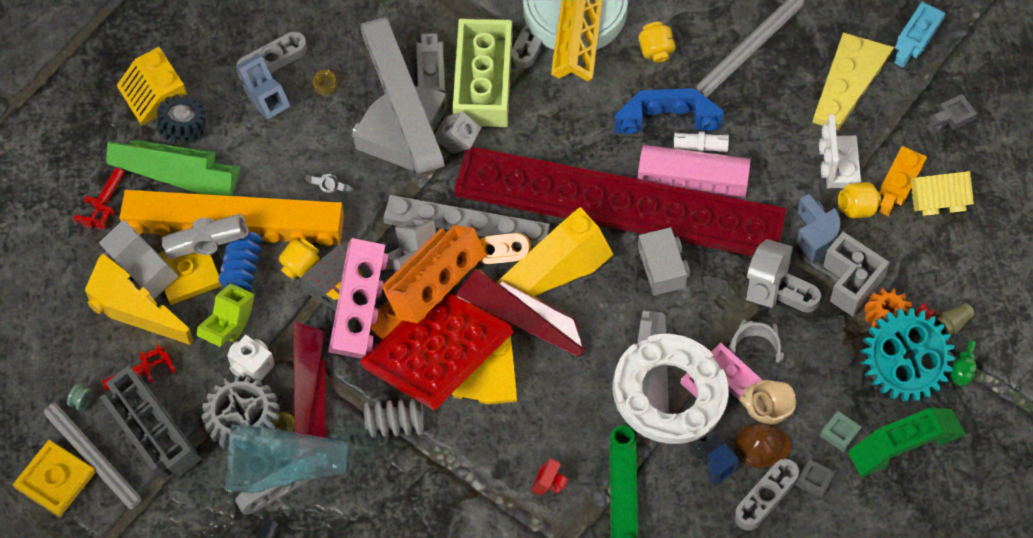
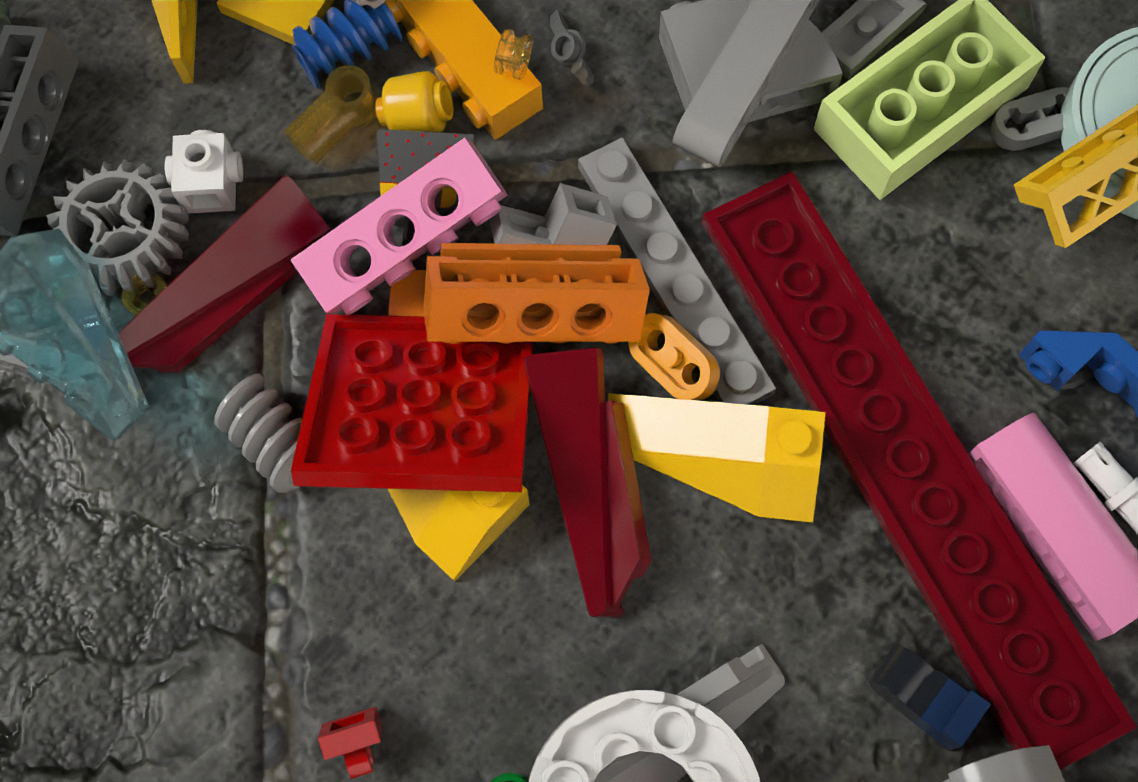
camera: 50 degrees right, 10 degrees up
(145, 367) = (99, 58): red piece -> none
(229, 316) = (248, 95): lime brick -> none
(271, 294) = (331, 118): none -> clear yellow piece
(322, 200) = (513, 54): none -> clear yellow bush
(457, 132) = (798, 140): light grey brick -> none
(662, 261) = (864, 609): light grey brick -> none
(715, 268) = (928, 697): none -> leg

